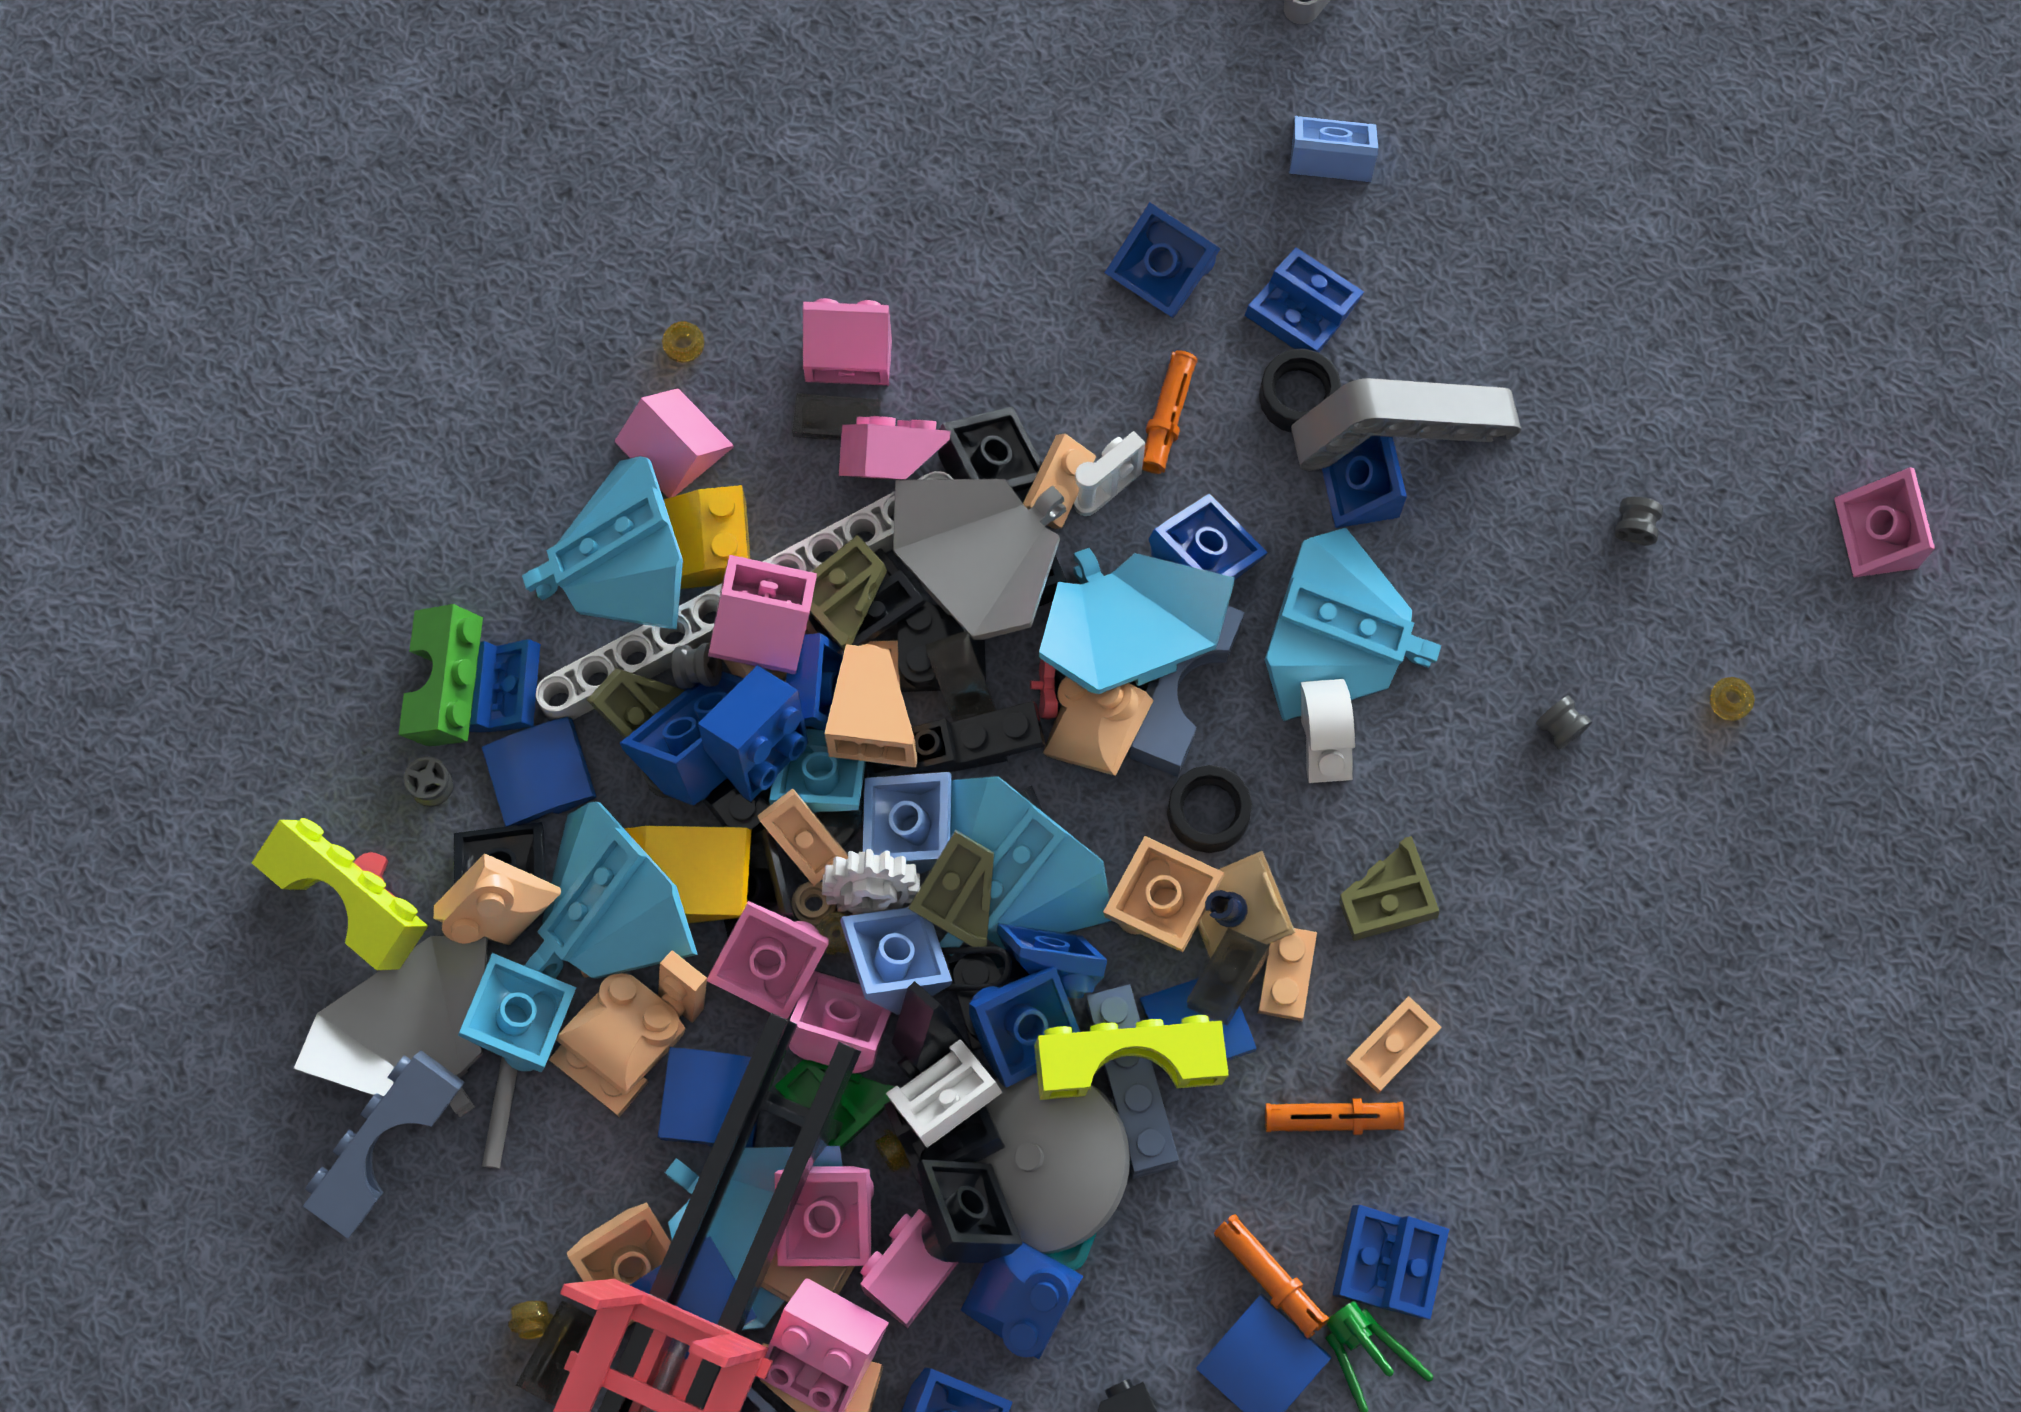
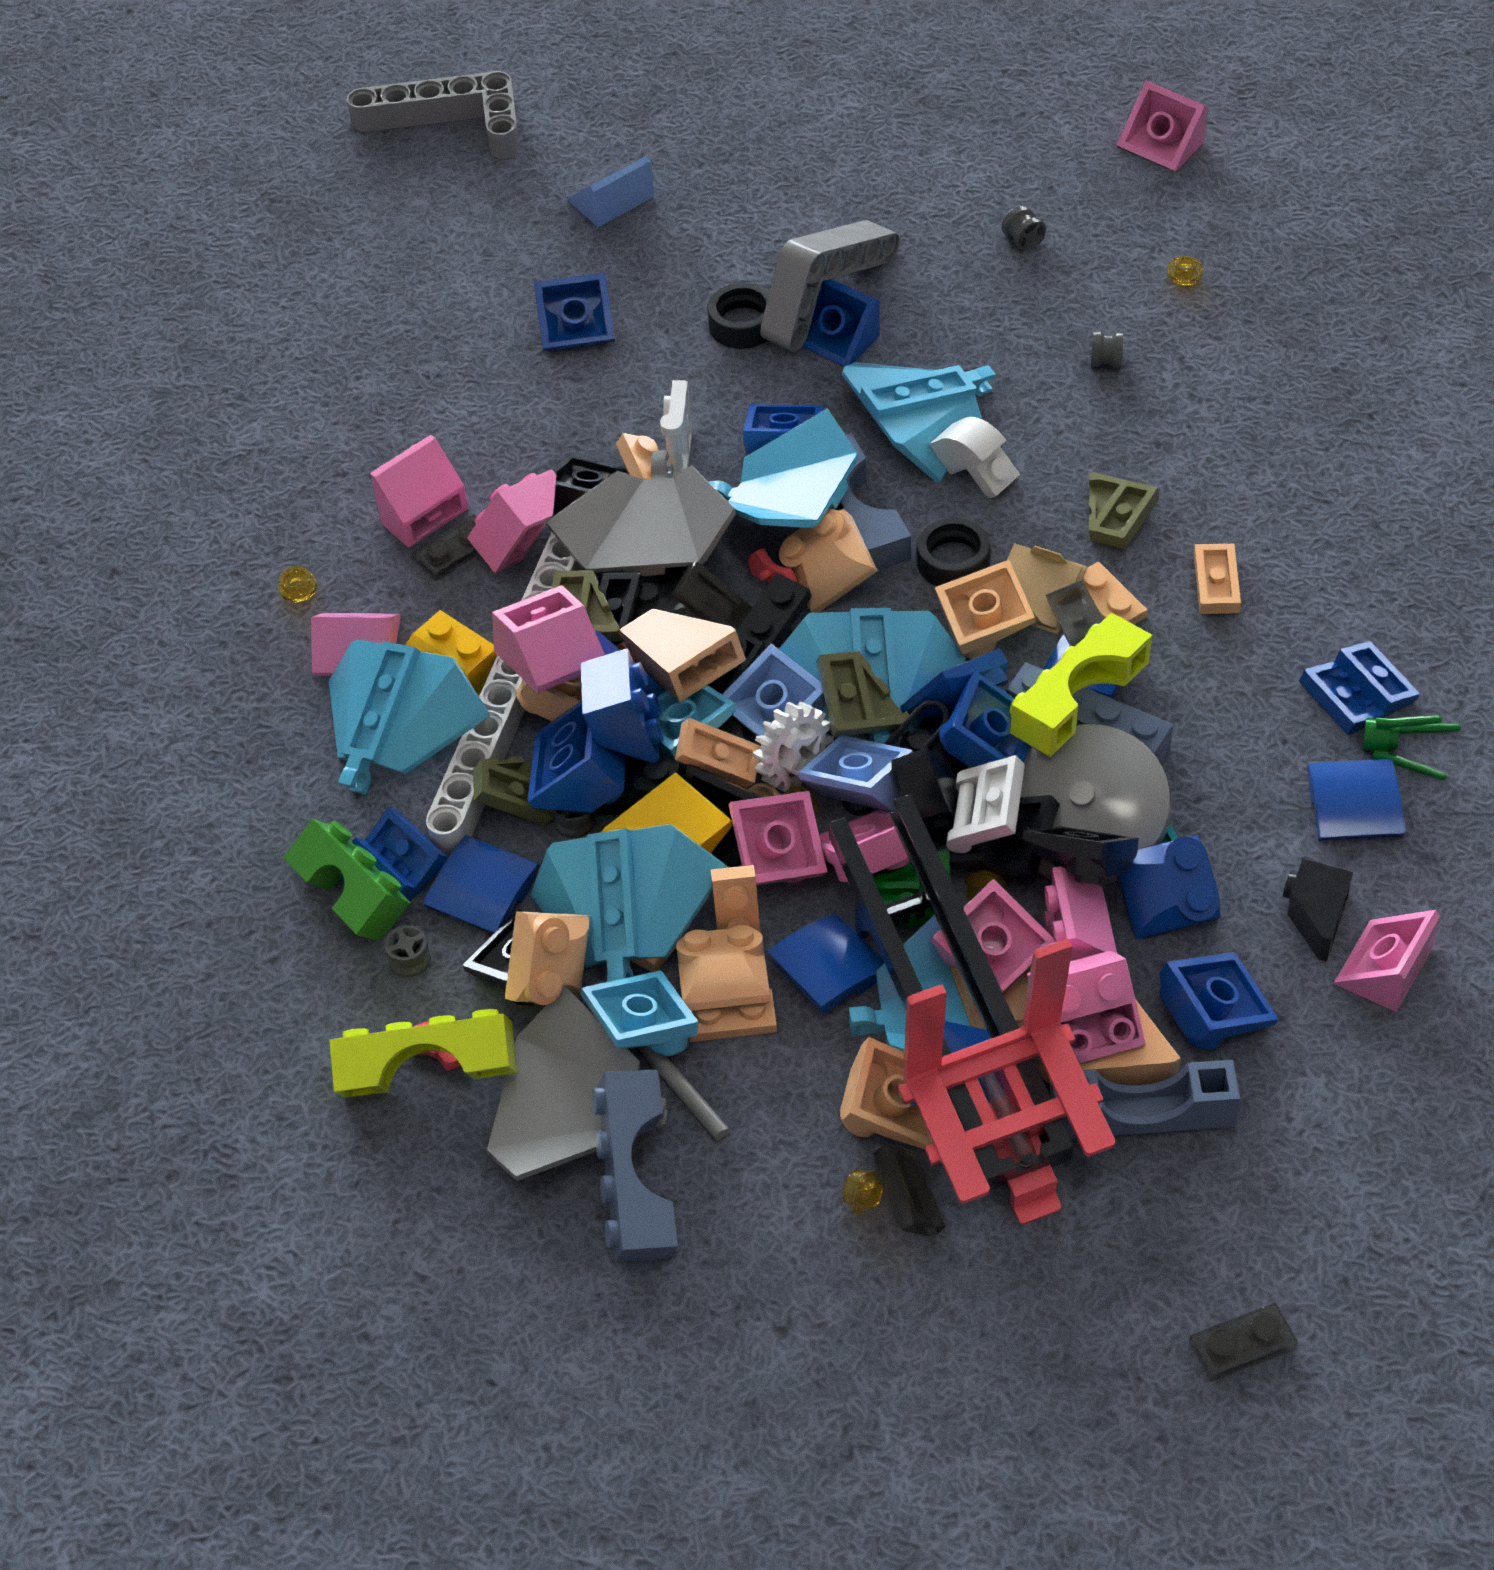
camera: 40 degrees left, 20 degrees down
(695, 666) = (528, 726): dark grey wheel -> none
(1164, 427) = (664, 374): orange pin -> none
(1236, 910) = (1032, 580): dark blue pin -> none
(1284, 1290) = (1302, 749): orange pin -> none
(1303, 302) = (686, 276): blue slope -> none
(1389, 1116) = (1241, 632): orange pin -> none

